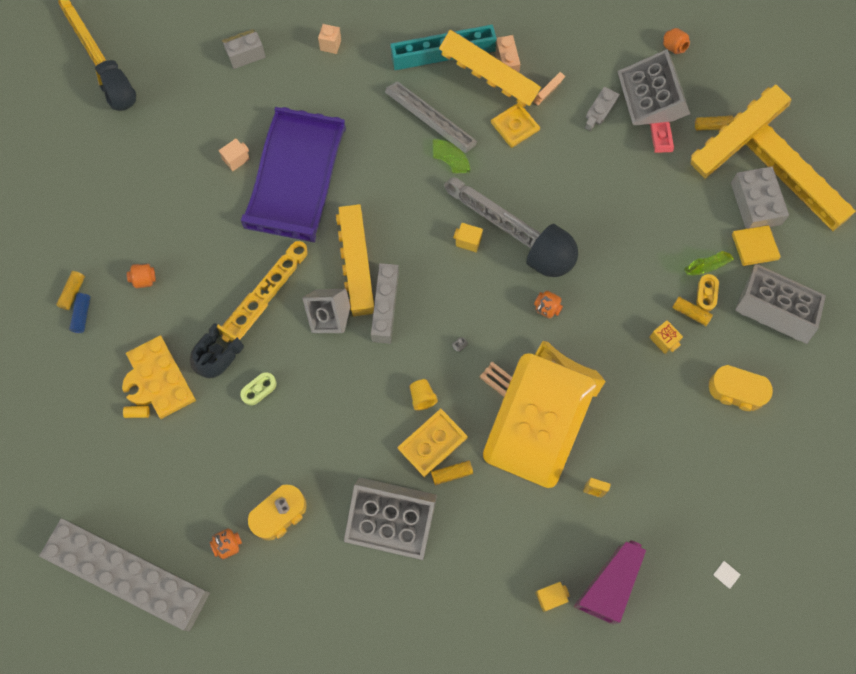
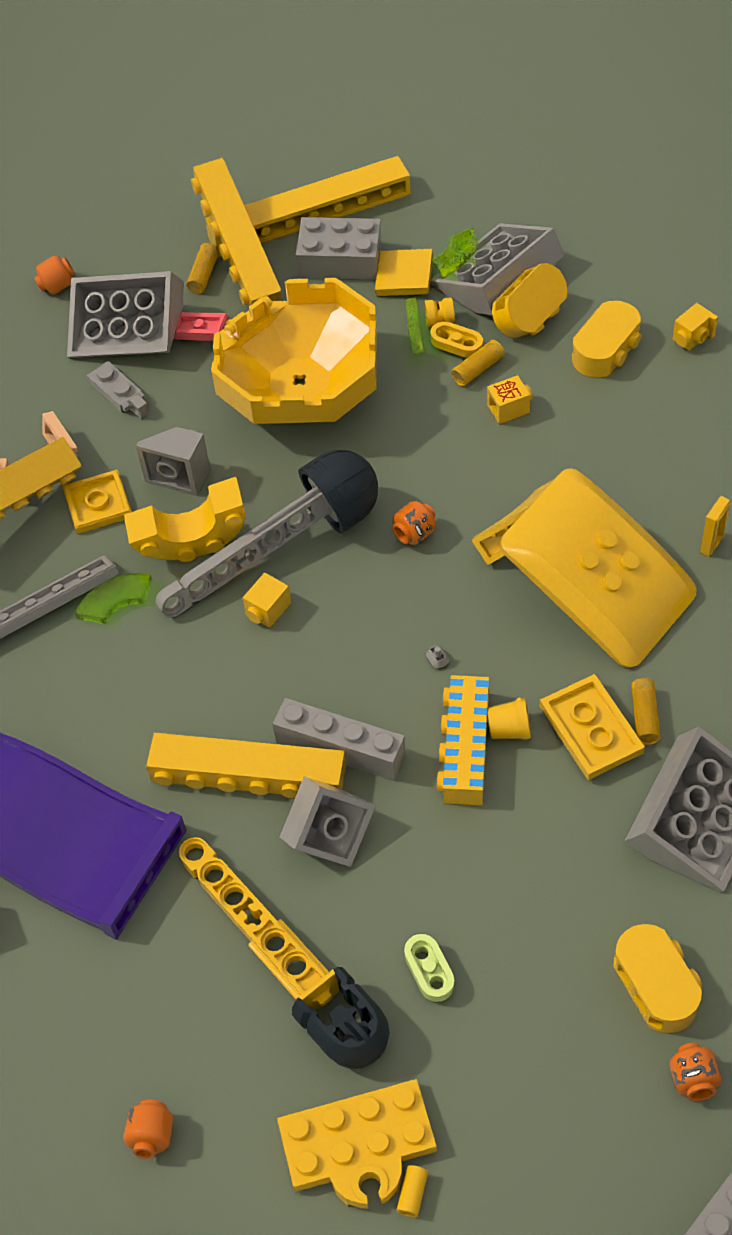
camera: 70 degrees left, 15 degrees down
(282, 505) = (652, 955): light grey rock -> none
(403, 372) = (465, 740): none -> yellow brick
(488, 370) = (511, 612): light nougat tile -> none
(500, 177) = (192, 532): none -> yellow brick
(551, 156) = (175, 460): none -> light grey slope
(649, 178) = (314, 335): none -> yellow windscreen
(726, 276) = (439, 311): none -> yellow wheel
(752, 330) = (530, 301): none -> yellow brick
(771, 444) = (694, 327): none -> yellow brick
(785, 274) = (458, 252): none -> clear neon green tile

